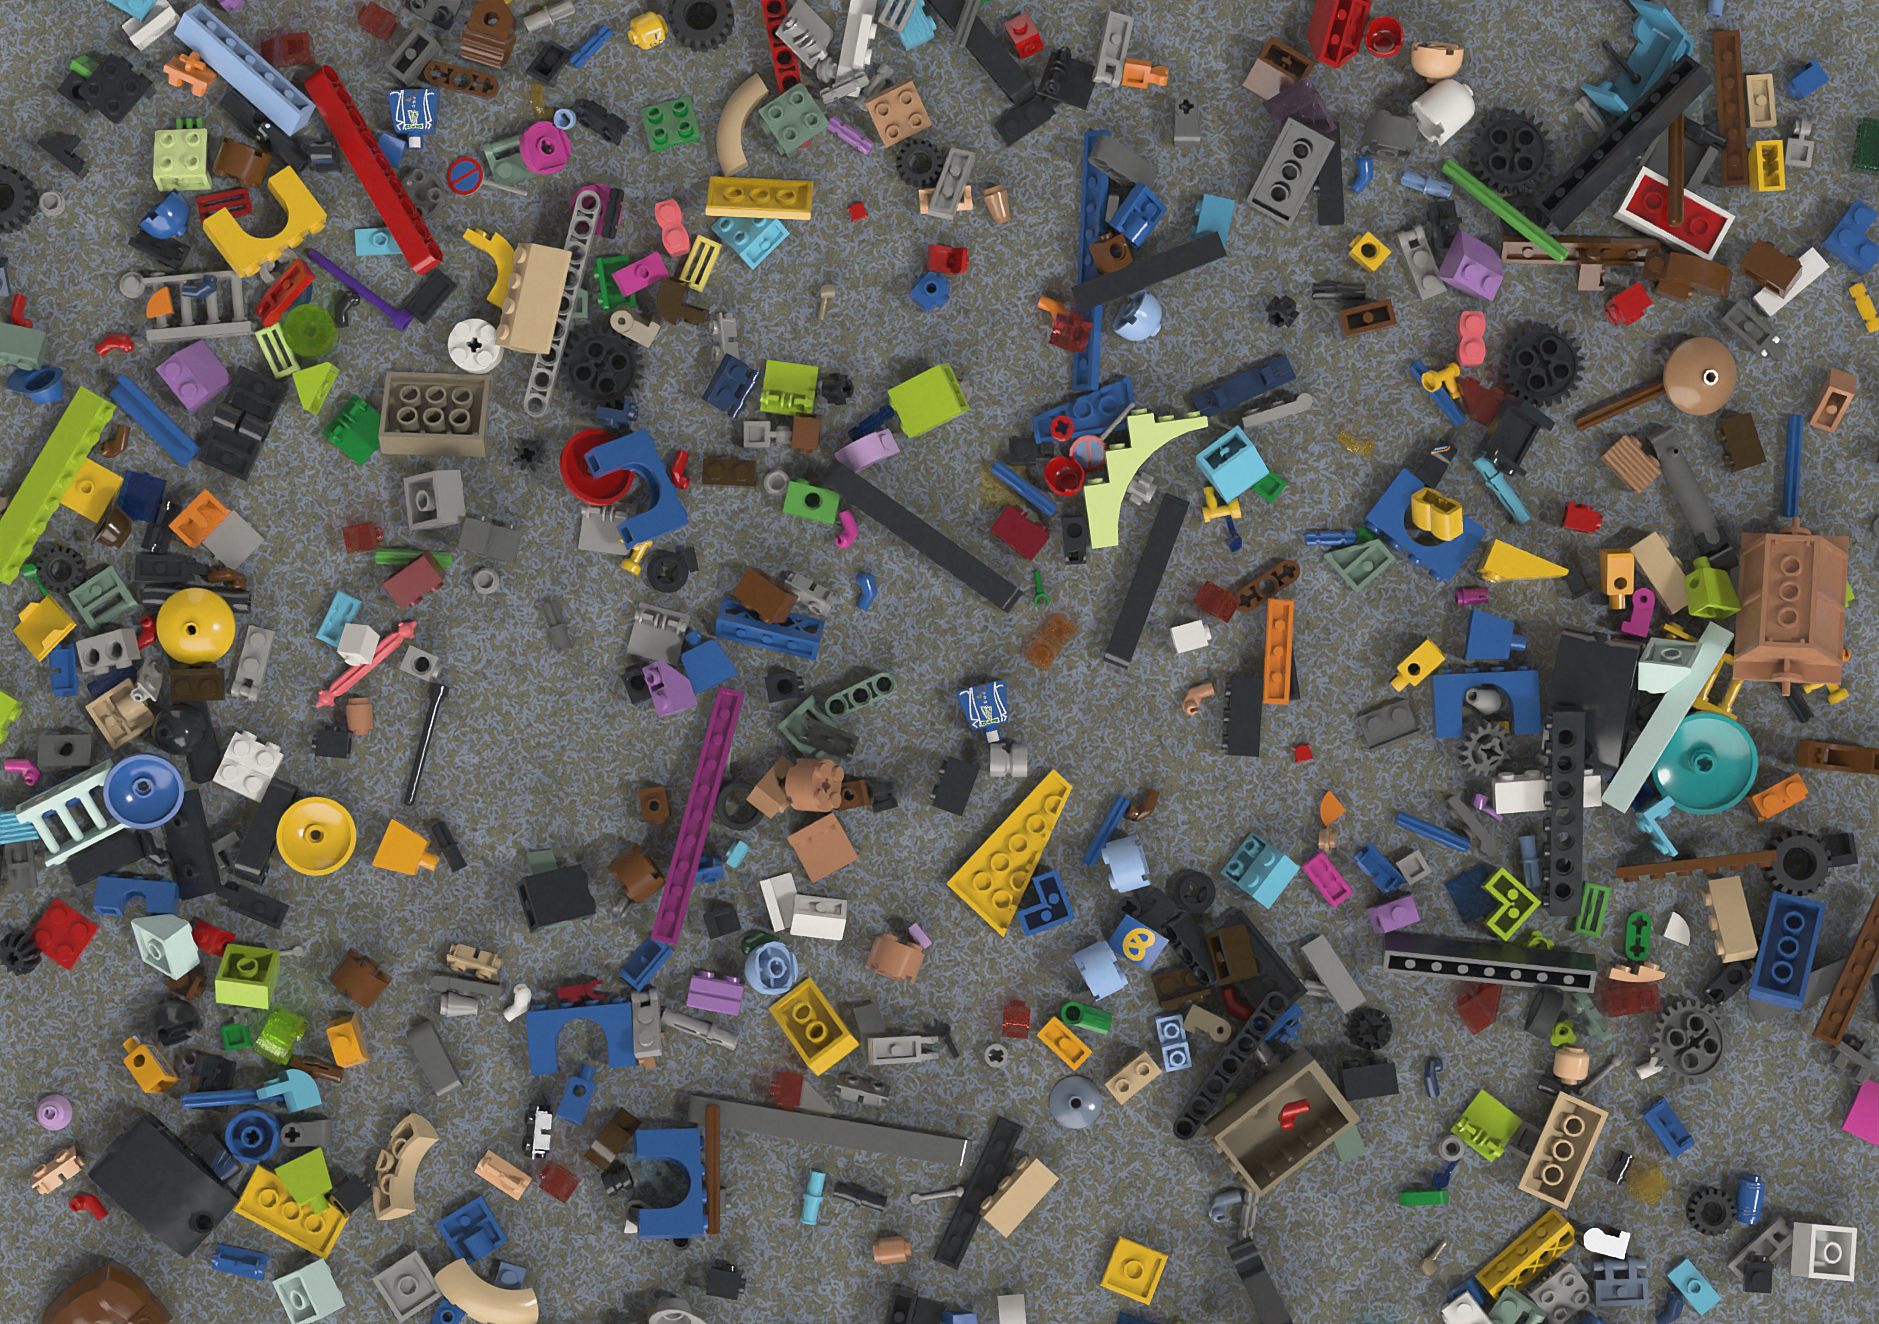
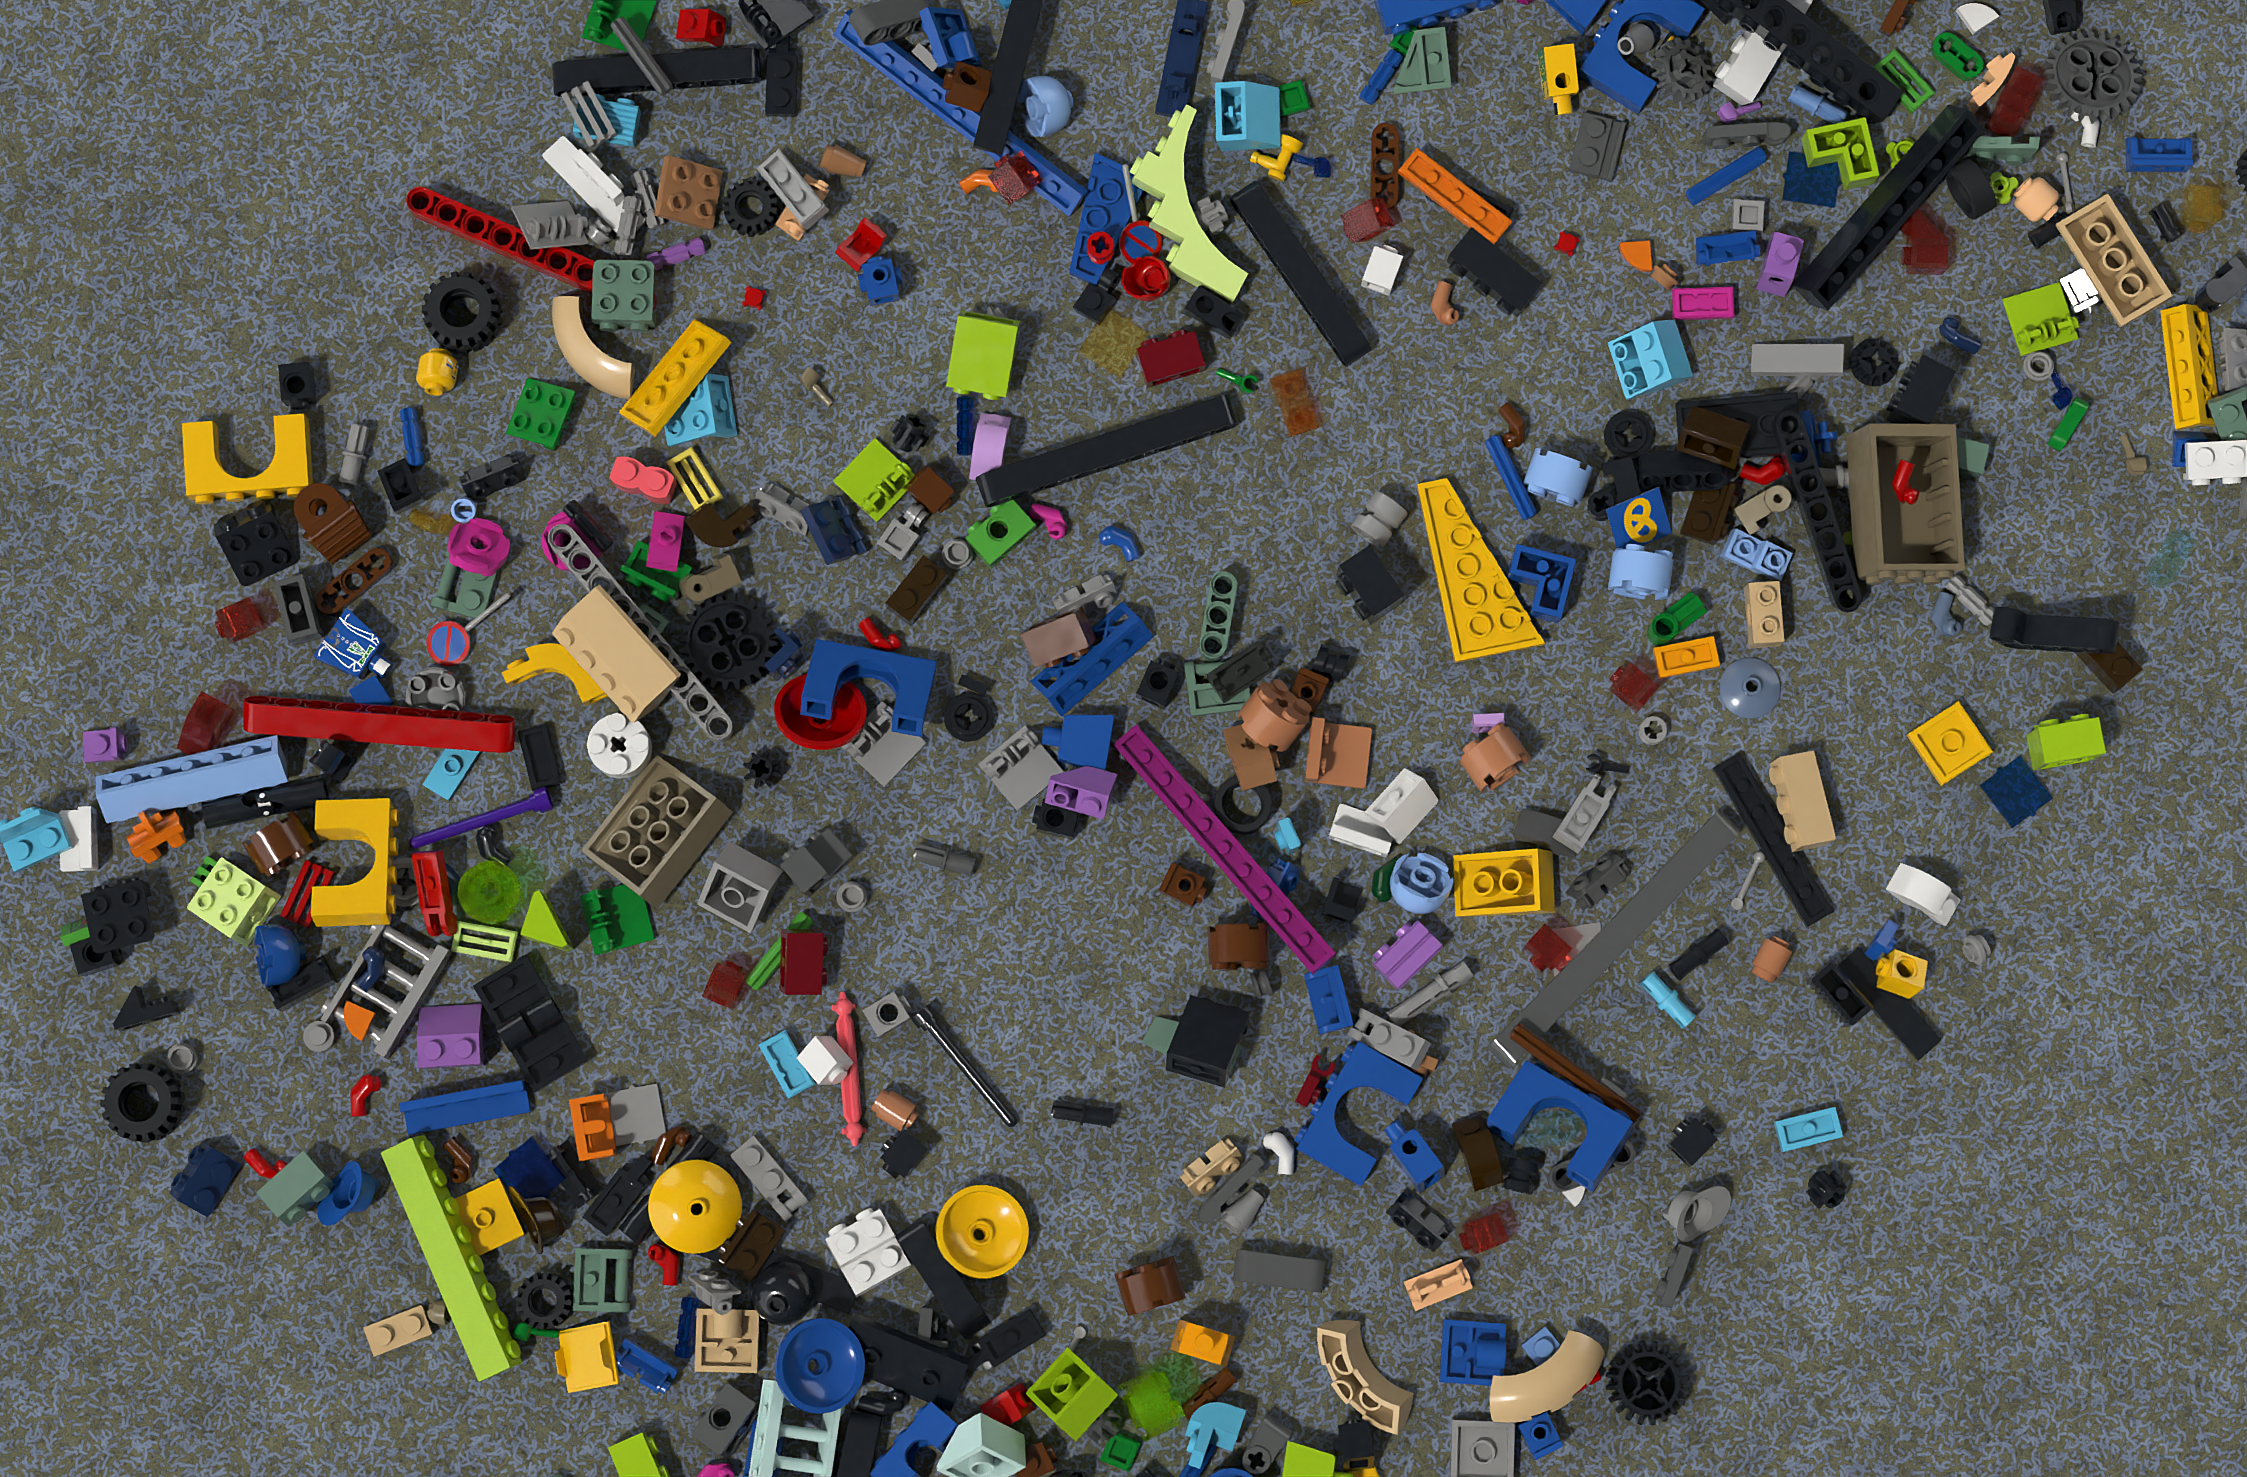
camera: 60 degrees left, 5 degrees down
(107, 646) = (651, 1306): light grey brick -> none
(404, 850) = (1056, 1157): light orange torso -> none
(632, 564) = (936, 745): yellow piece -> none
(985, 708) = (1314, 507): torso -> none
(1024, 488) = (1130, 325): blue axle -> none

